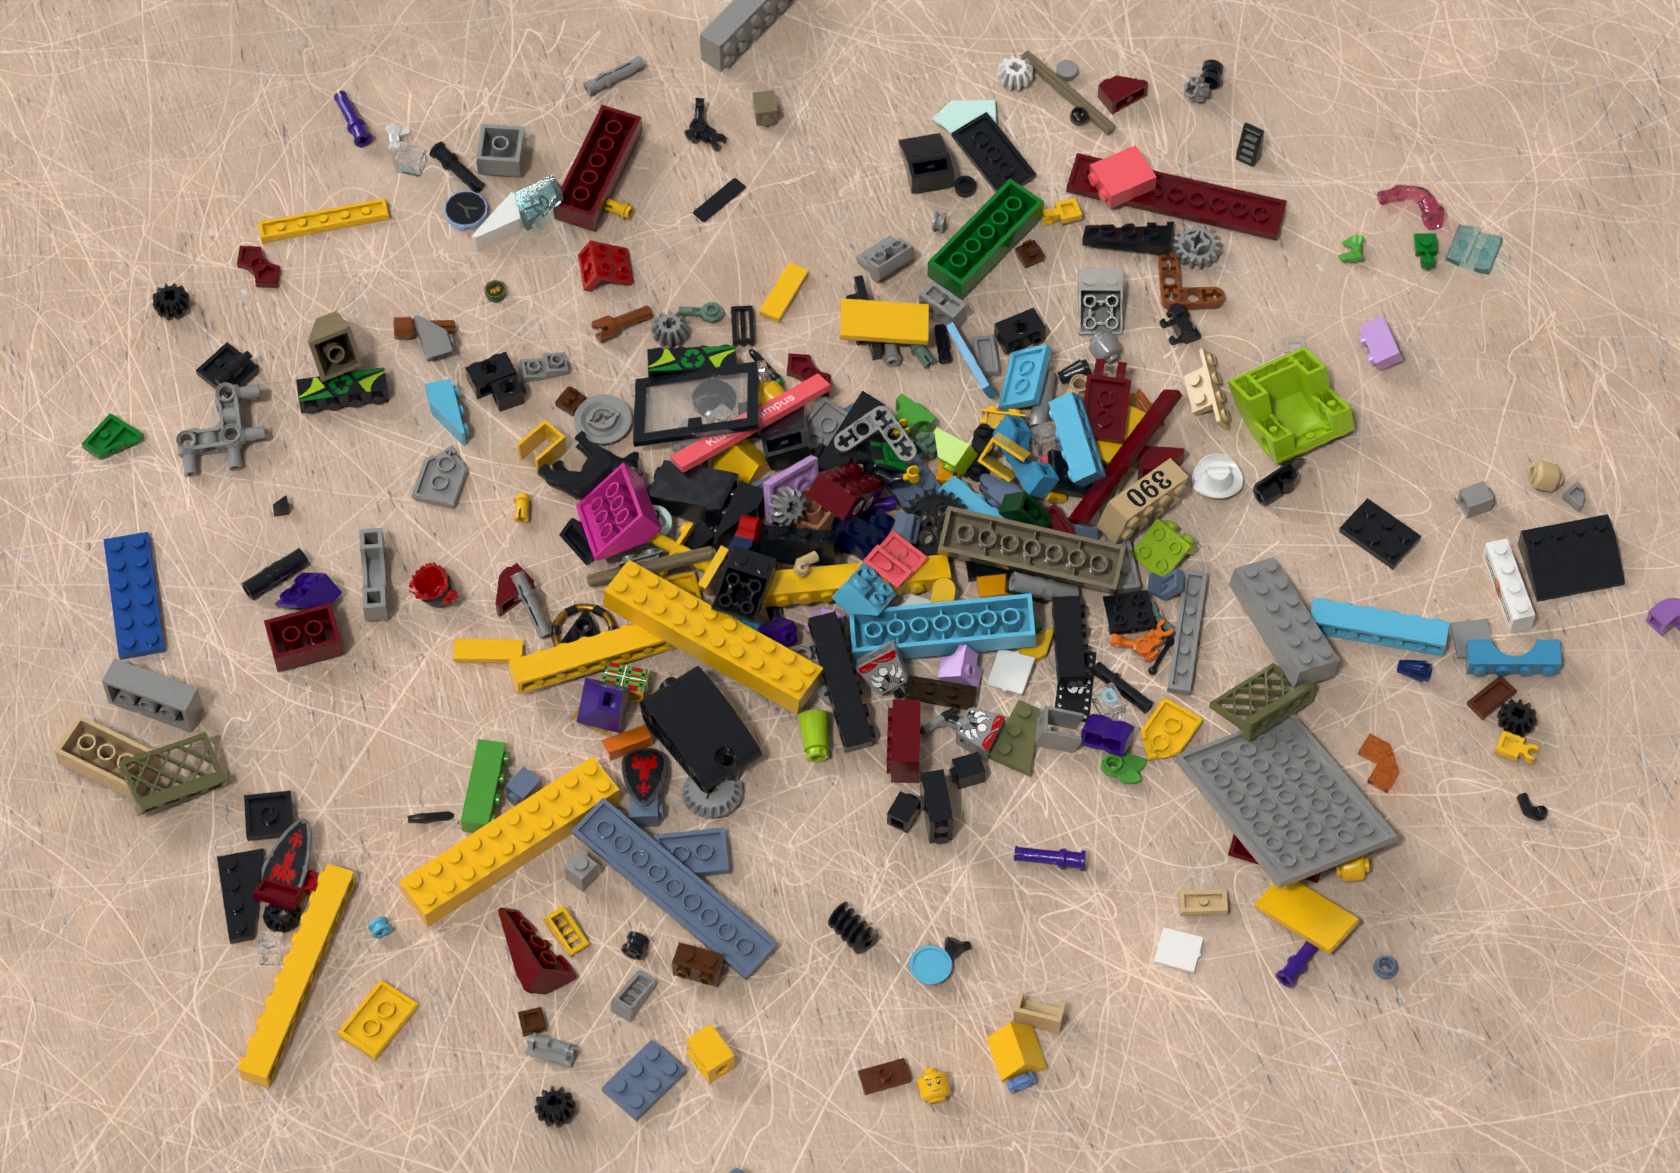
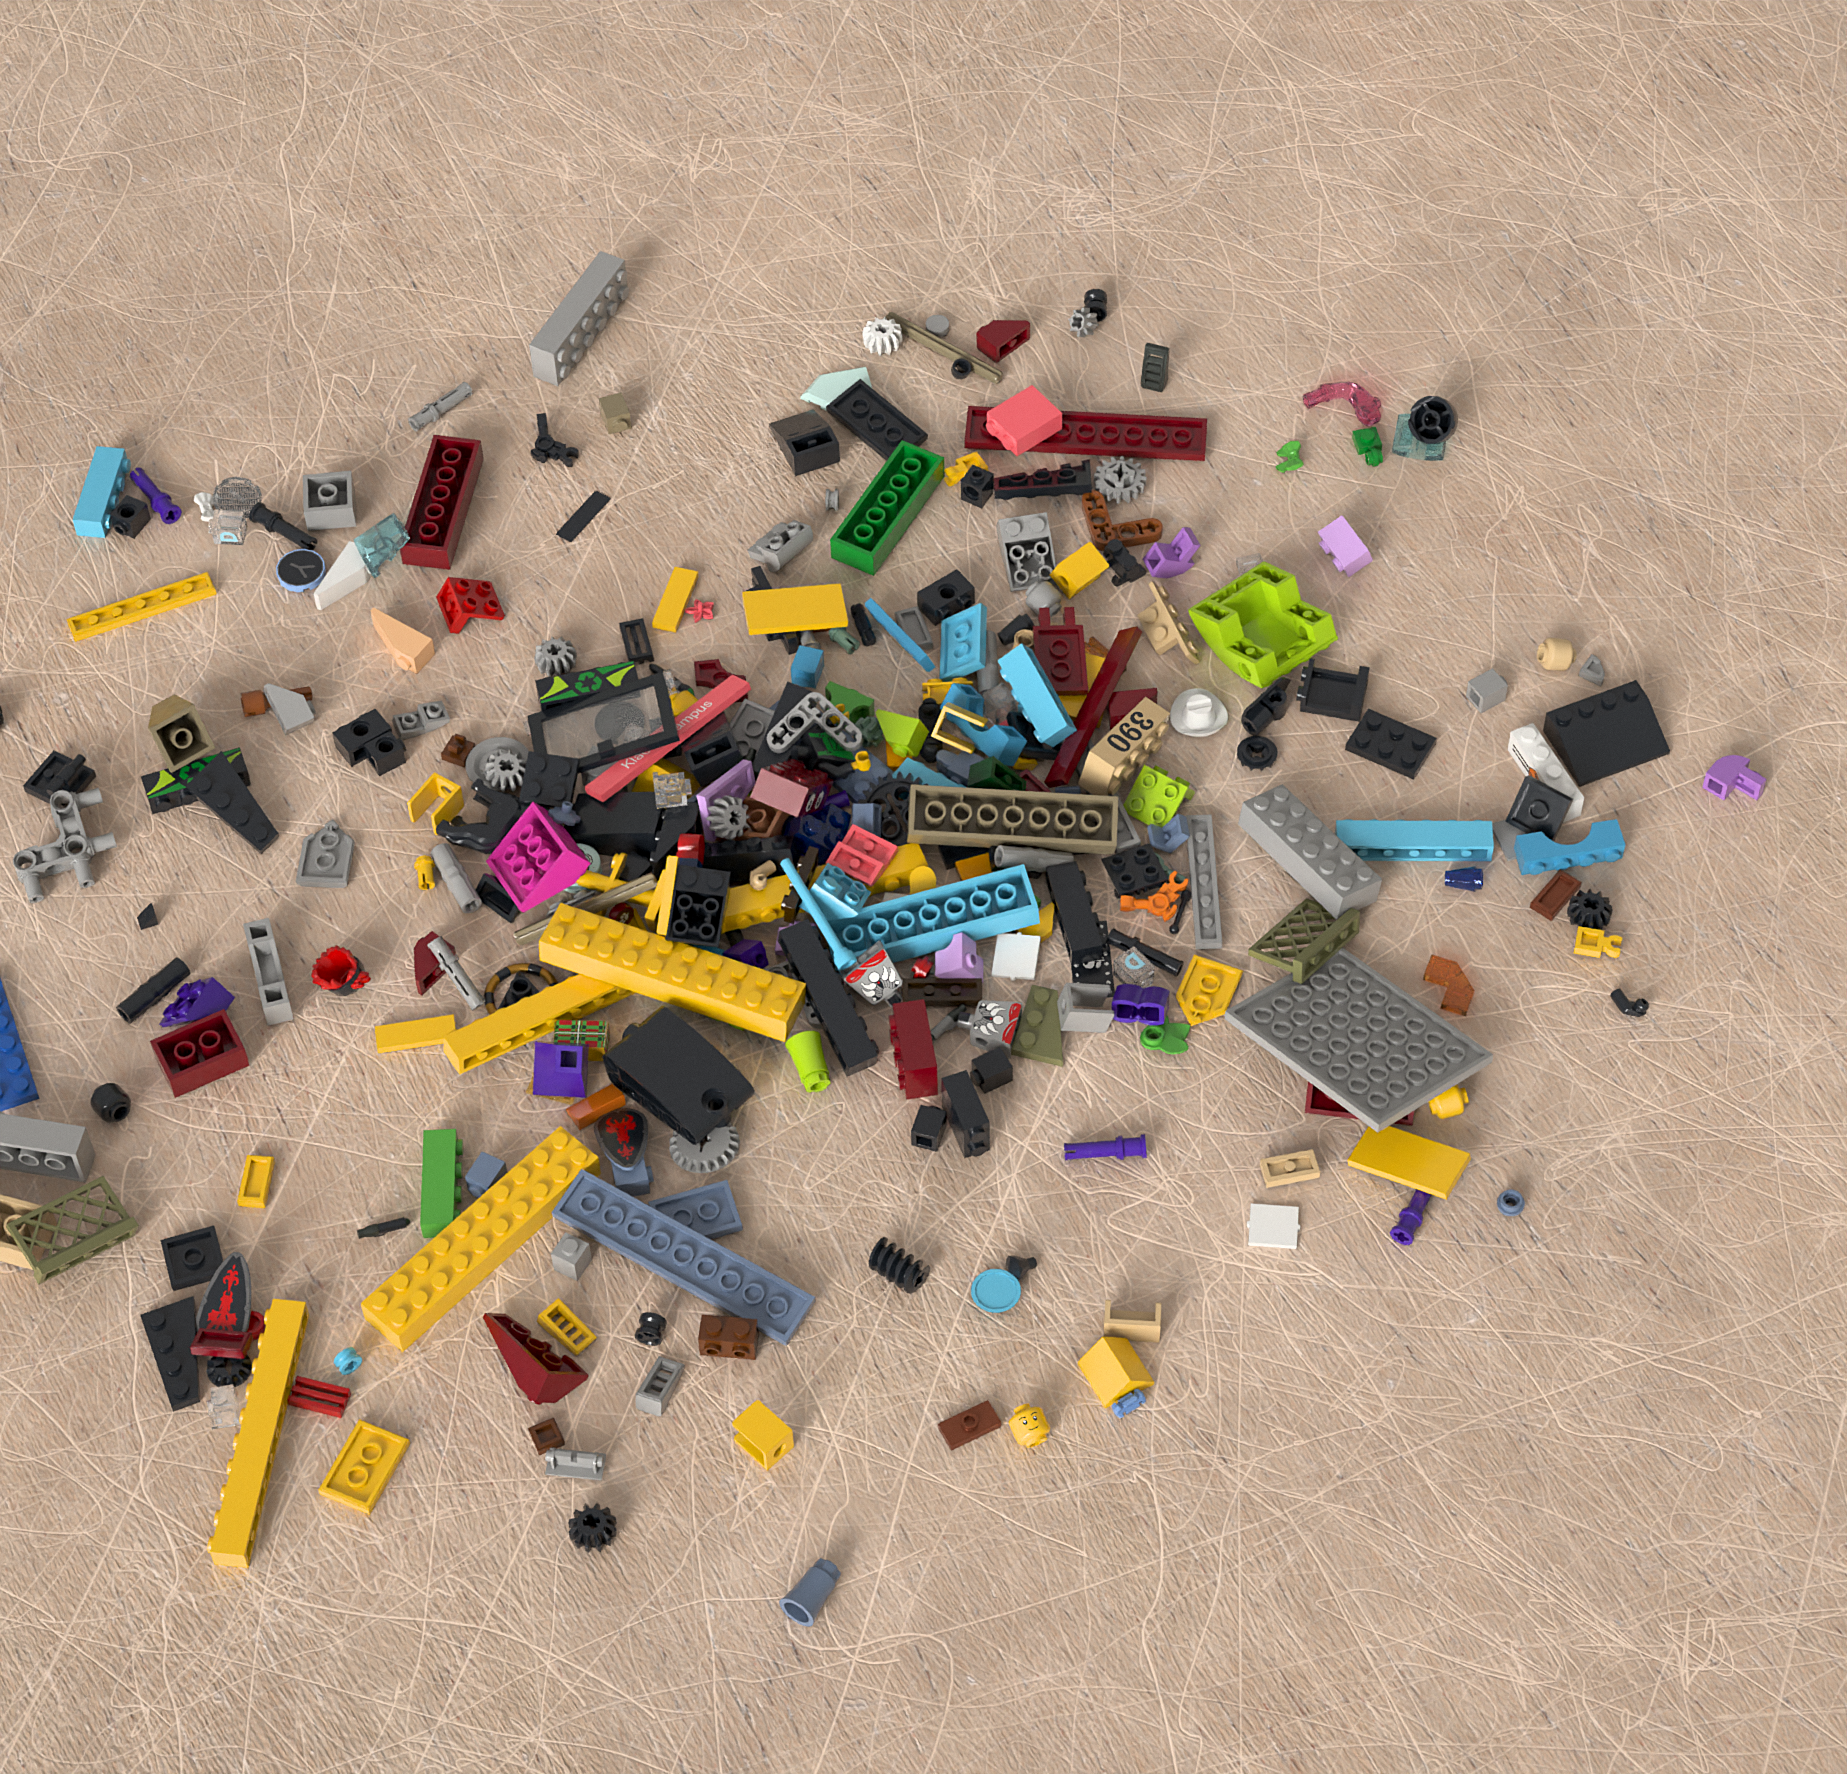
camera: 10 degrees left, 5 degrees down
(223, 667) = (111, 1102): none -> black head
(252, 260) = (84, 671): dark red tile -> none
(306, 108) = (101, 491): none -> medium azure brick
(327, 136) = (130, 516): none -> black brick
(332, 757) = (256, 1181): none -> yellow tile
(334, 944) = (296, 1390): none -> red tile
(367, 413) = (231, 801): none -> black wing
(422, 131) = (237, 495): none -> clear tile
(444, 407) = (316, 780): medium azure slope -> none
(495, 291) = (350, 649): tile -> none
(543, 295) = (408, 647): none -> light nougat slope
(547, 517) = (456, 878): none -> light grey axle
(607, 420) = (506, 763): none -> light grey gear
(611, 325) = (488, 664): dark orange piece -> none
(619, 208) = (474, 541): yellow pin -> none
(641, 444) = (549, 779): none -> black plate
(644, 1080) = (691, 1479): sand blue plate -> none
(648, 478) = (564, 814): none -> sand blue plant
(680, 576) = (622, 913): none -> tile
(710, 312) = (597, 633): sand green plate -> none
(719, 569) = (667, 894): none -> yellow tile
(742, 473) = (671, 789): none -> clear brick
(804, 306) = (701, 610): none -> coral plant
(836, 577) = (807, 867): none -> dark brown plate
(859, 649) = (843, 957): none -> medium azure piece
(885, 375) = (807, 666): none -> dark azure brick
(928, 668) = (922, 967): none -> red plate
(943, 305) = (856, 582): light grey brick -> none
(965, 186) = (852, 460): black tile -> none
(1029, 253) = (938, 517): reddish brown tile -> none
(1068, 231) = (977, 486): none -> black brick
(1141, 326) = (1079, 570): none -> yellow piece
(1228, 328) = (1174, 558): none -> medium lavender brick
(1262, 514) = (1257, 744): none -> black gear
(1340, 477) = (1333, 692): none -> black panel
(1486, 238) = (1433, 420): none -> black cylinder
(1493, 618) = (1539, 808): none -> black plate

